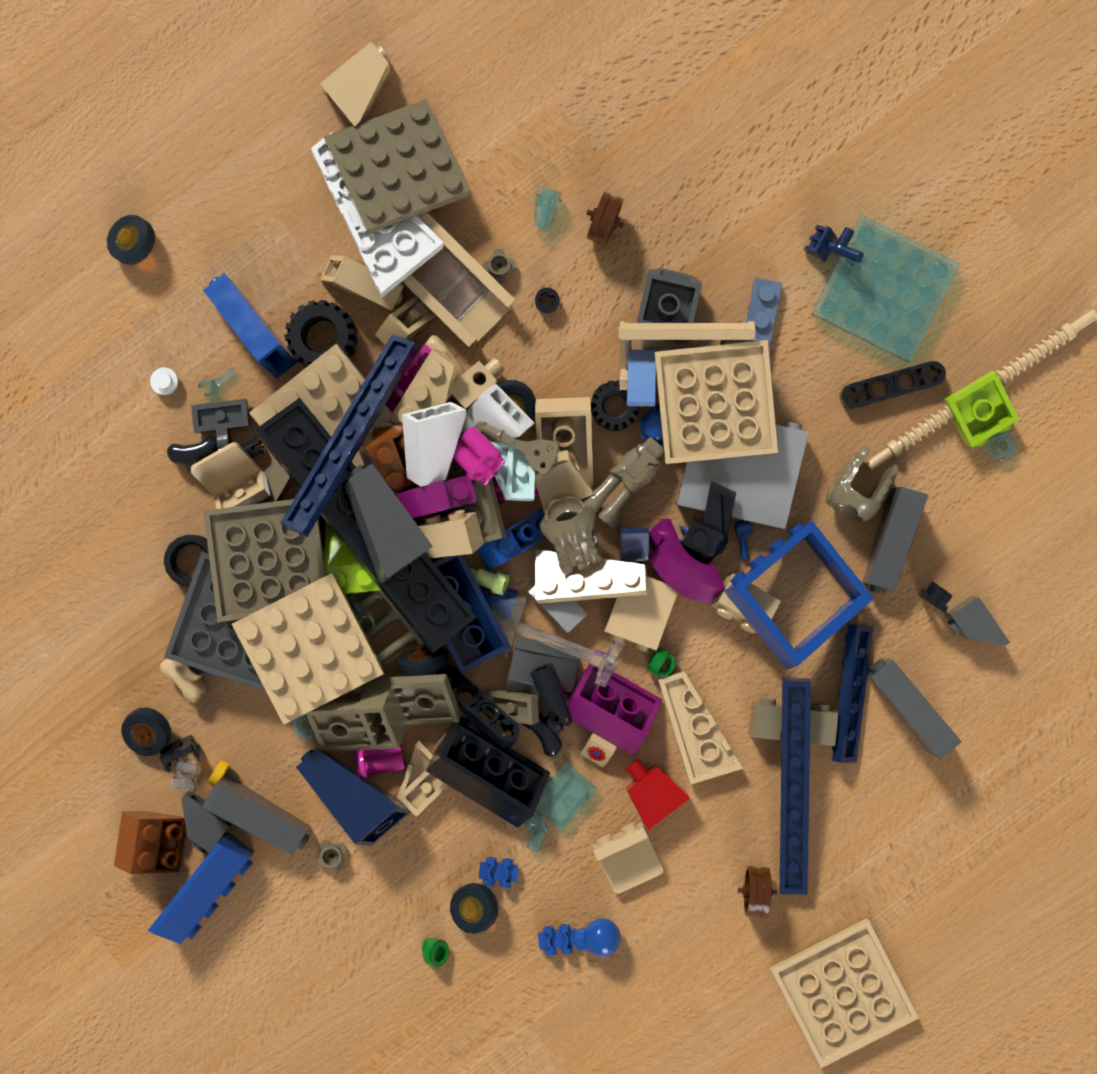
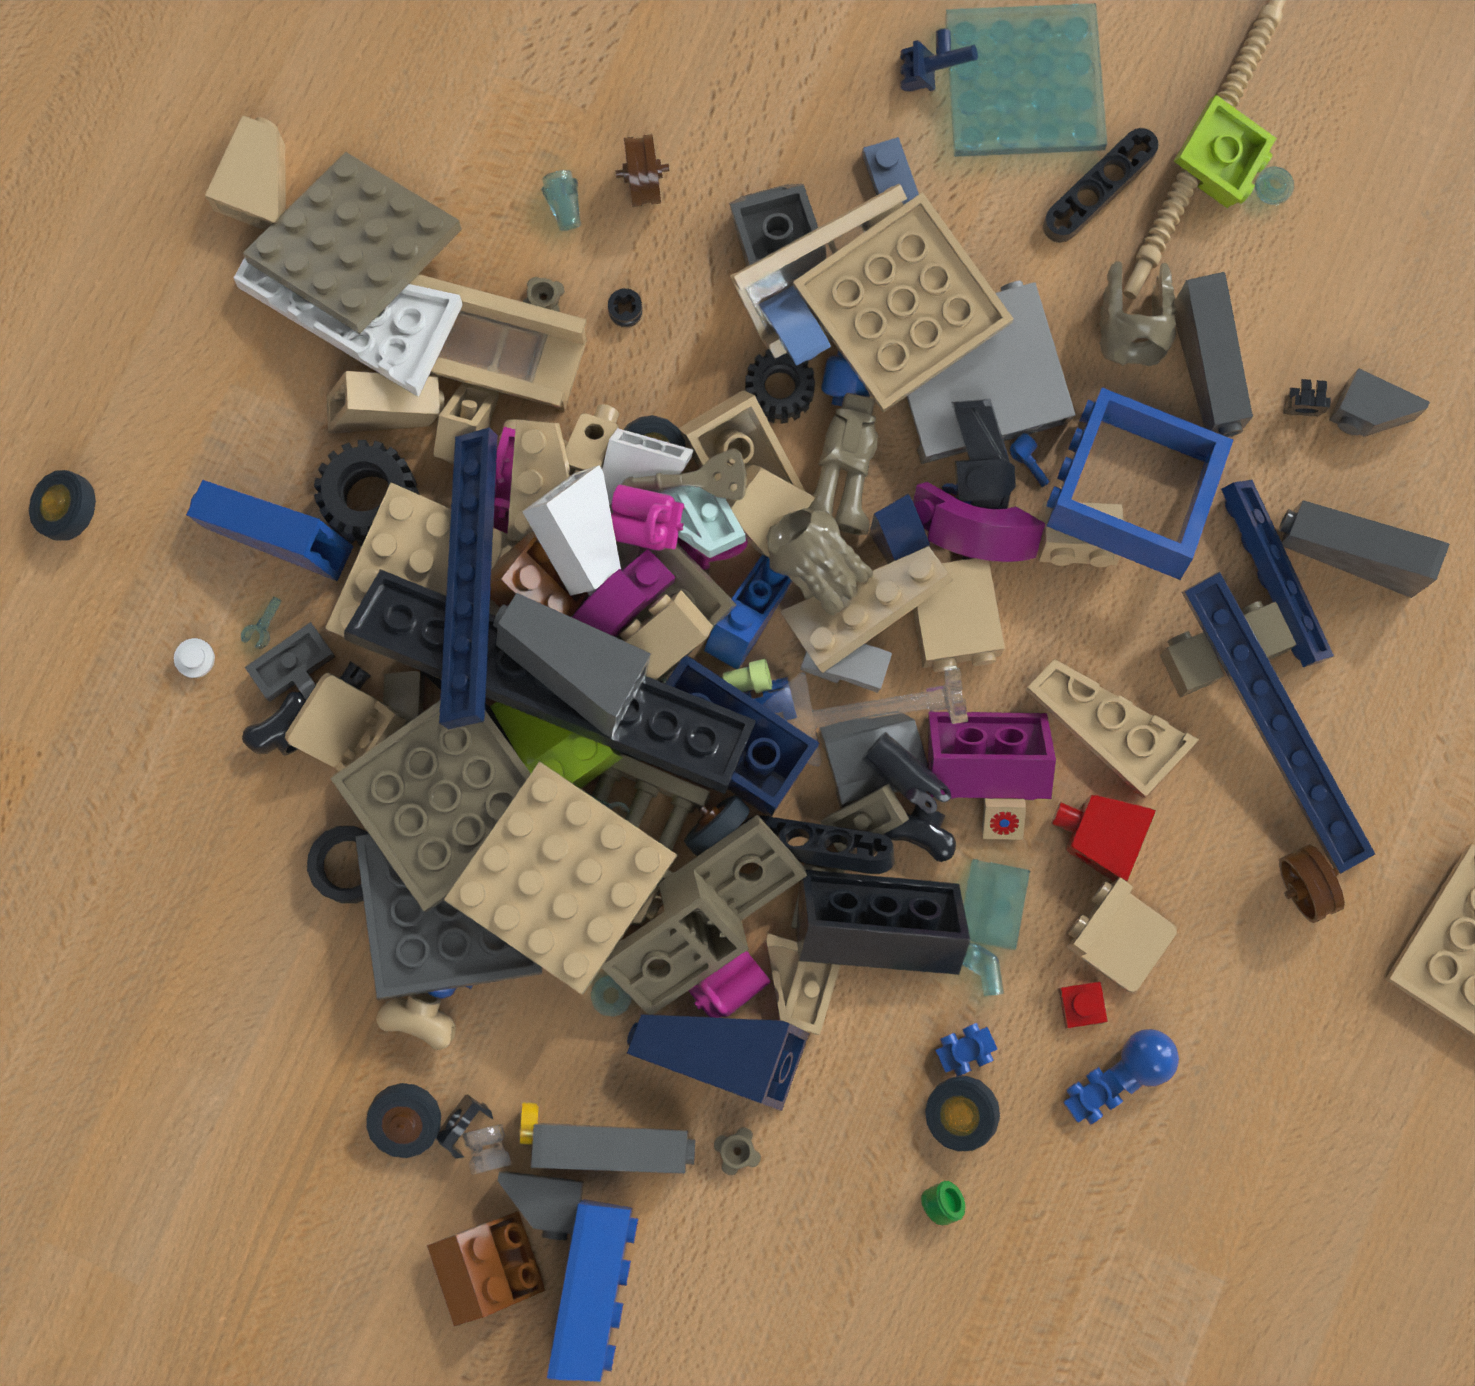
camera: 30 degrees left, 10 degrees down
(582, 883) = (1083, 1004): none -> red plate
(658, 659) = (1012, 665): green tile -> none

